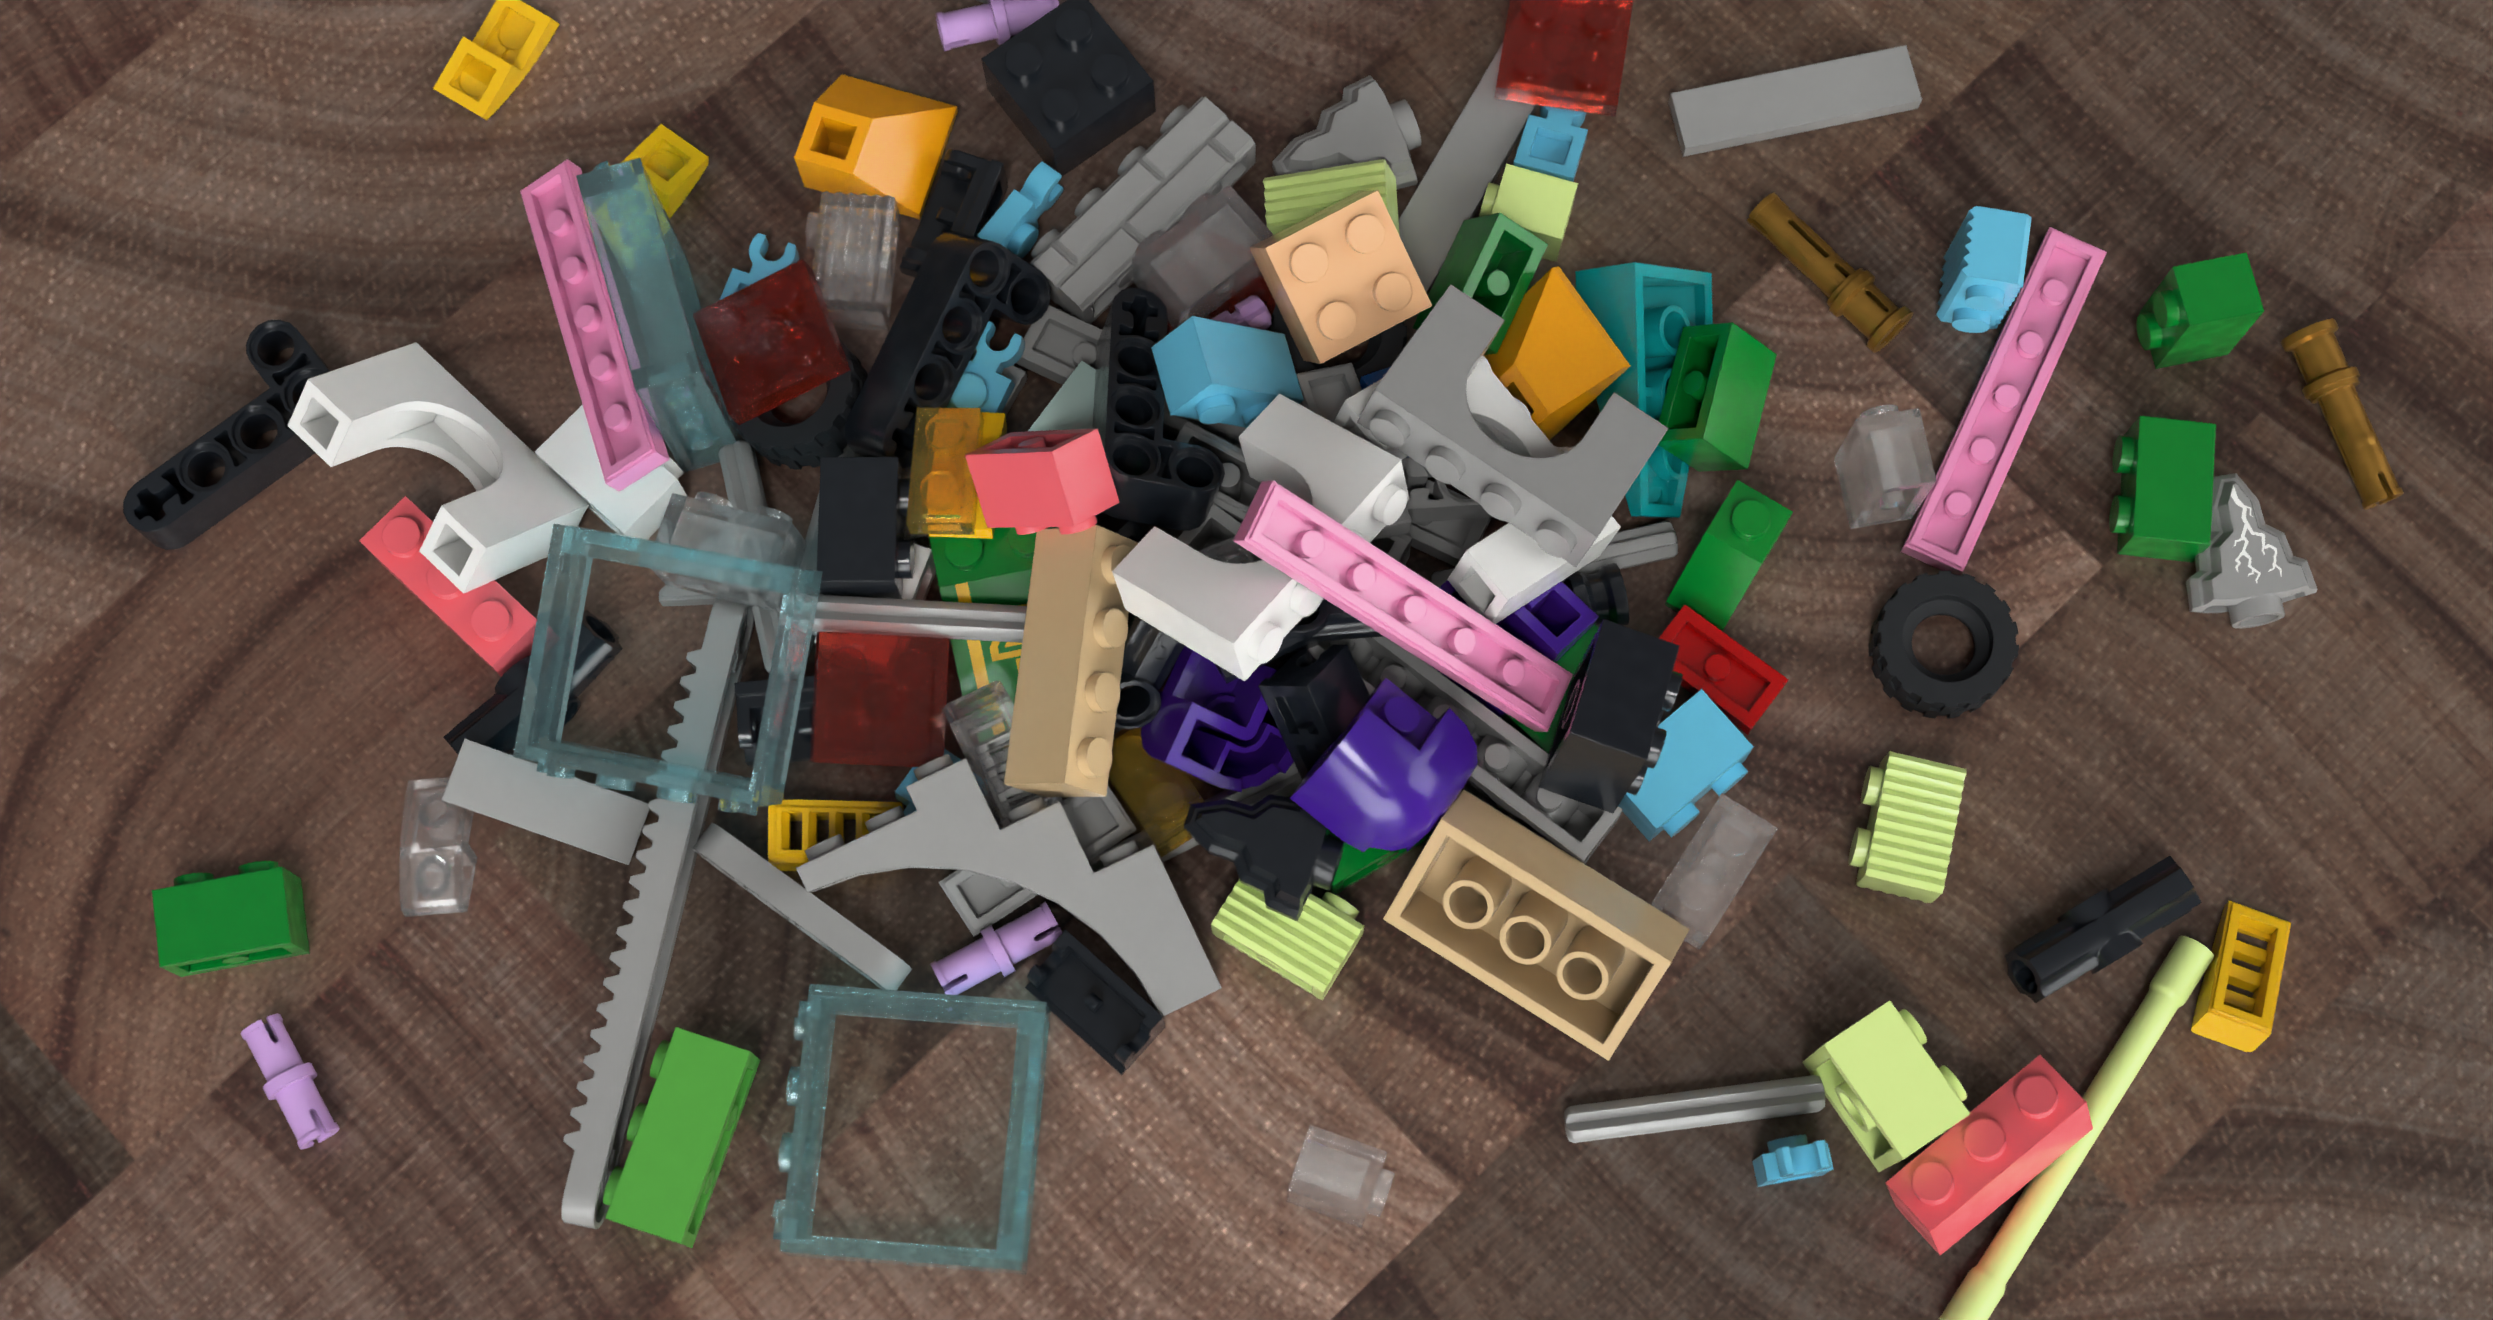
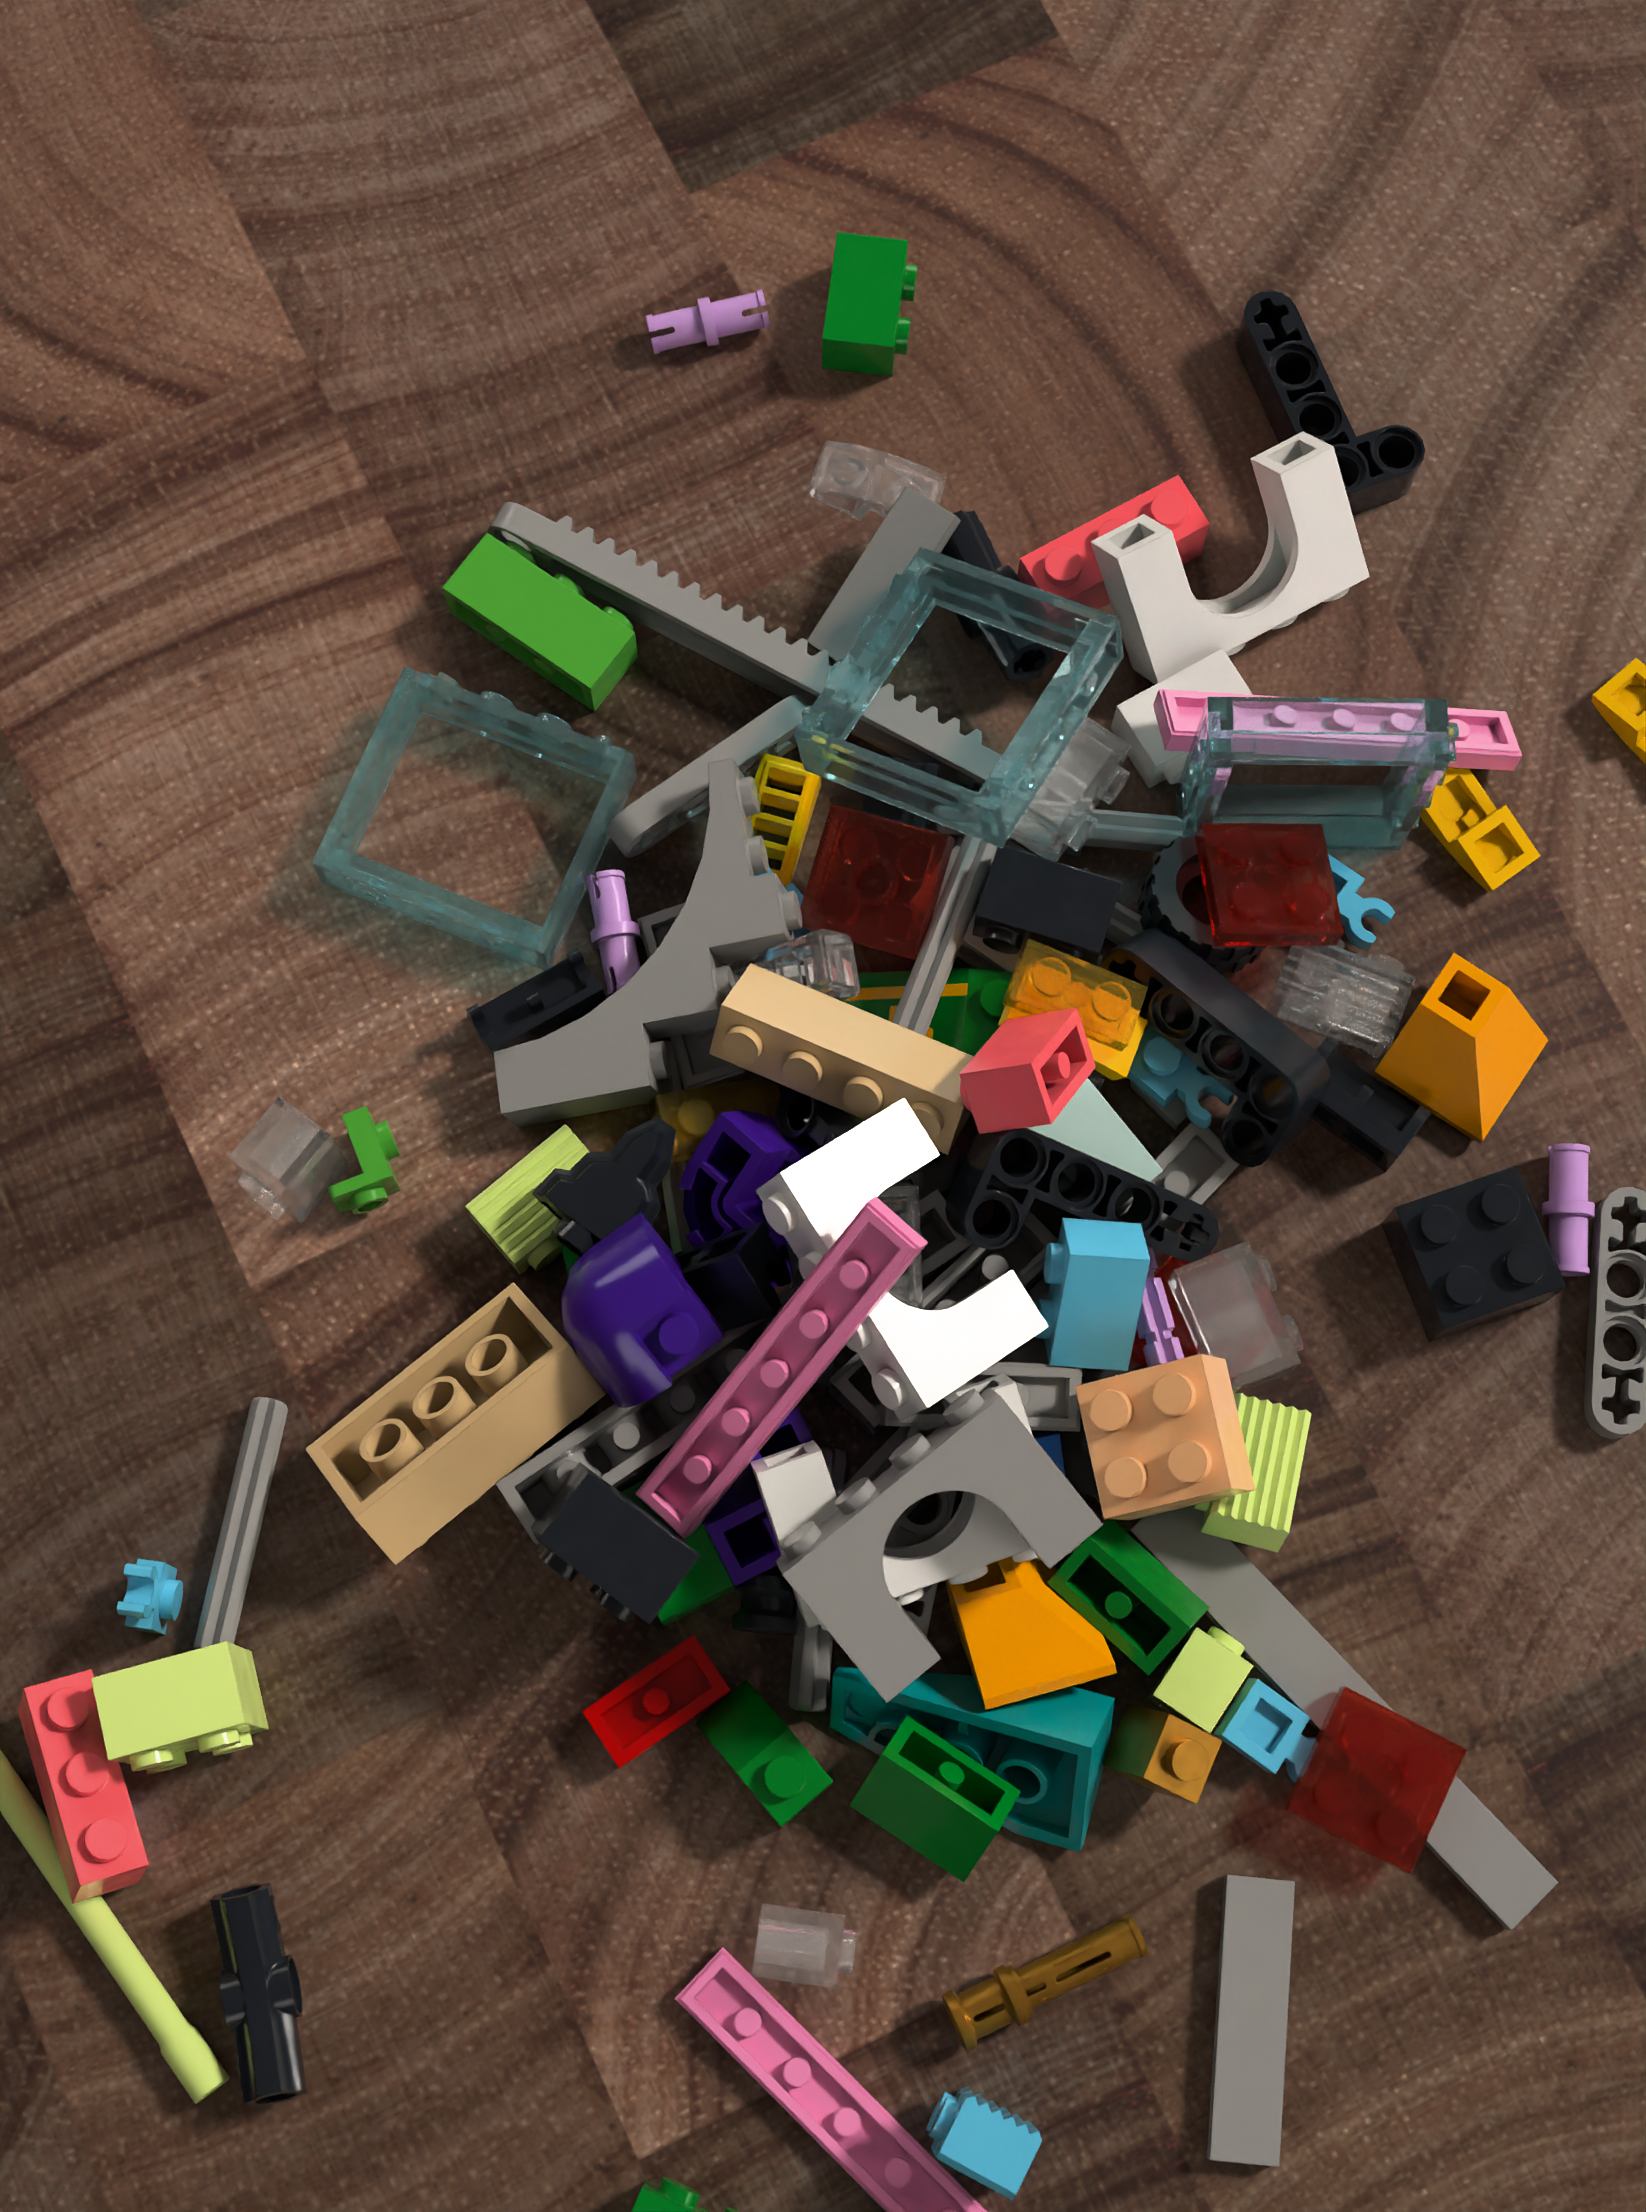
camera: 105 degrees right, 0 degrees up
(1017, 218) = (1333, 1156): medium azure plate -> none
(1155, 187) = (1333, 1309): light grey brick -> none
(1291, 1109) = (374, 1149): none -> bright green bracket
(1357, 131) = (1333, 1527): light grey rock -> none
(1606, 219) = (1162, 1753): none -> pearl gold brick
(1698, 755) = (572, 1632): medium azure brick -> none
(1713, 868) = (454, 1618): clear brick -> none
(1908, 826) = (431, 1835): yellowish green brick -> none
(1972, 605) = (552, 1957): black tyre -> none
(2229, 1015) = (152, 2150): yellow slope -> none

